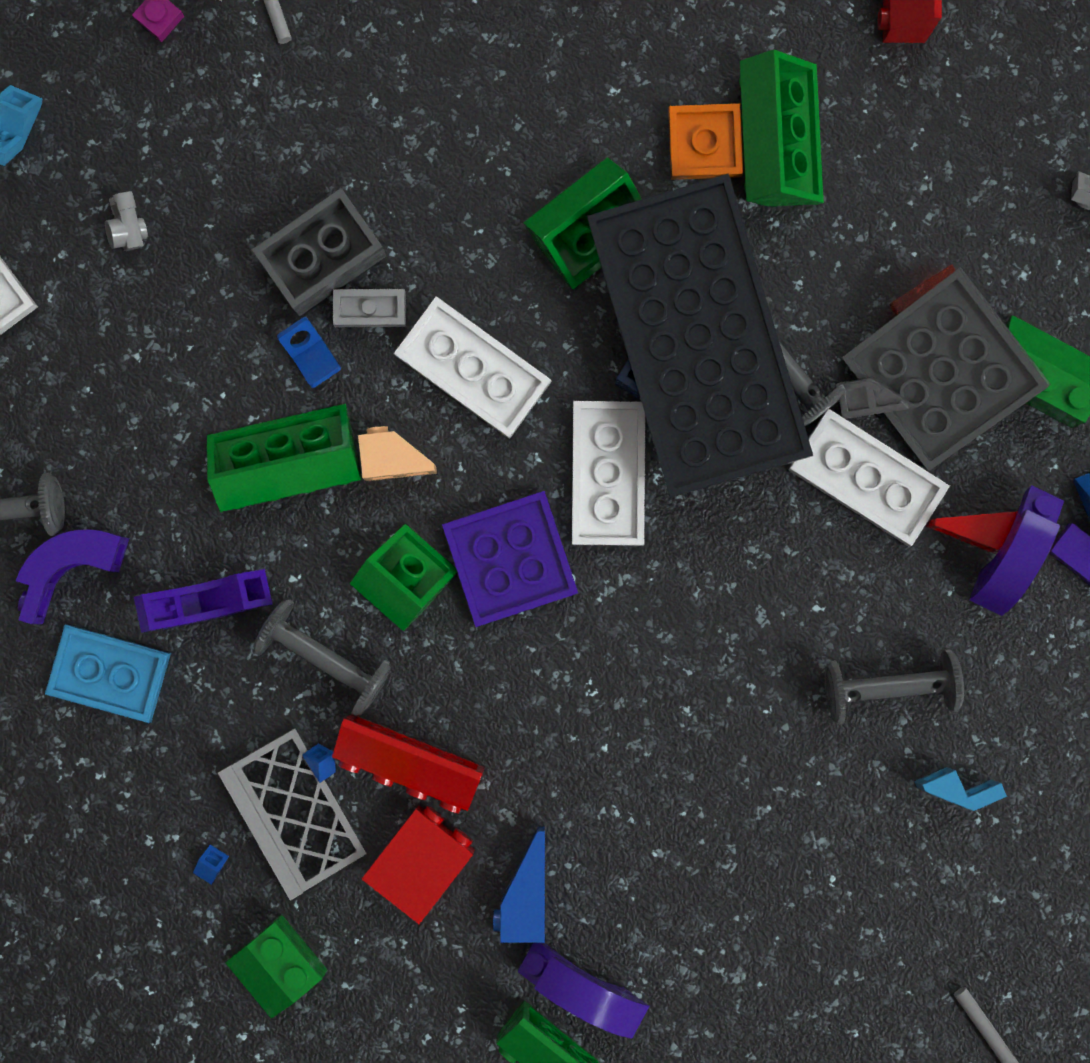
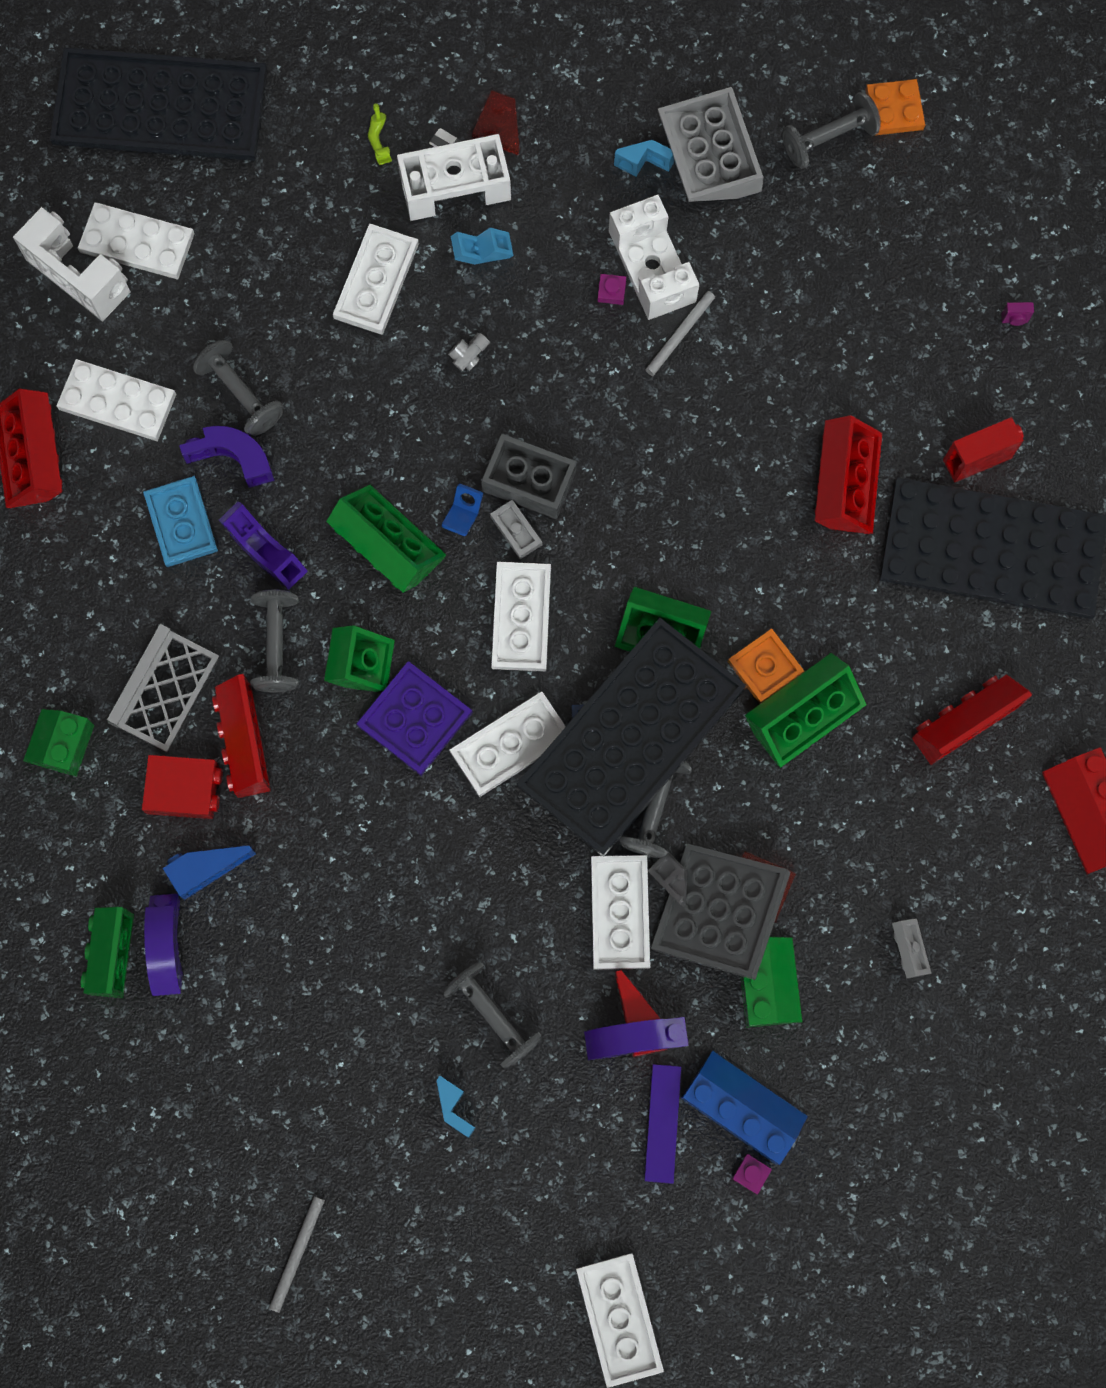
camera: 55 degrees right, 10 degrees down
(210, 864) = (98, 660): blue piece -> none
(320, 762) = (207, 685): blue piece -> none
(390, 456) = (430, 602): light nougat slope -> none

